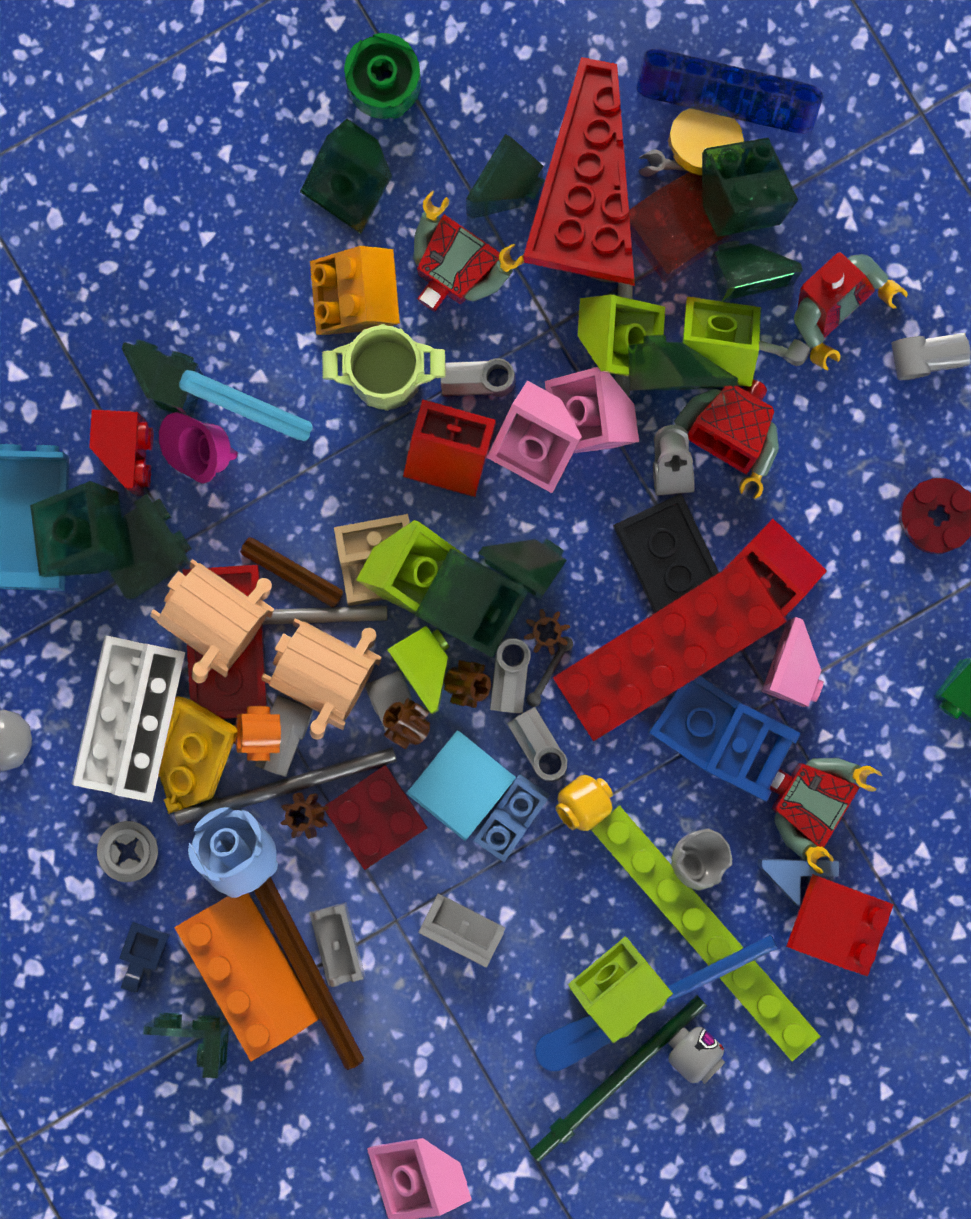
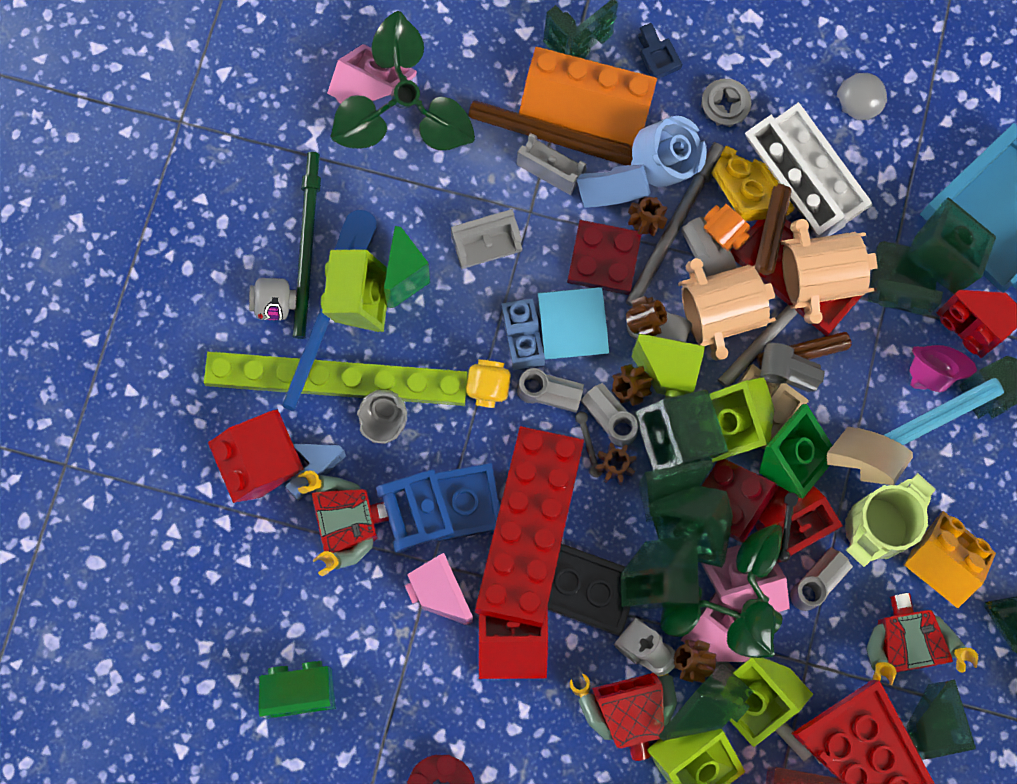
camera: 130 degrees right, 10 degrees down
(220, 693) = (773, 229): none -> reddish brown axle
(306, 864) = (613, 187): none -> medium blue slope
(328, 572) = (783, 367): none -> dark grey piece
(336, 432) = (876, 456): none -> tan slope
(393, 490) = (797, 453): none -> green slope
(444, 459) = (790, 501): none -> black hinge
(472, 1137) = (359, 123): none -> dark green plant
(483, 509) = (746, 493): none -> dark red plate
(538, 518) = (700, 513): none -> clear green slope
(562, 968) = (405, 271): none -> green slope
(595, 385) = (758, 622): none -> dark green plant
(605, 505) = (662, 574): none -> clear green slope
(649, 413) = (695, 661): none -> reddish brown gear

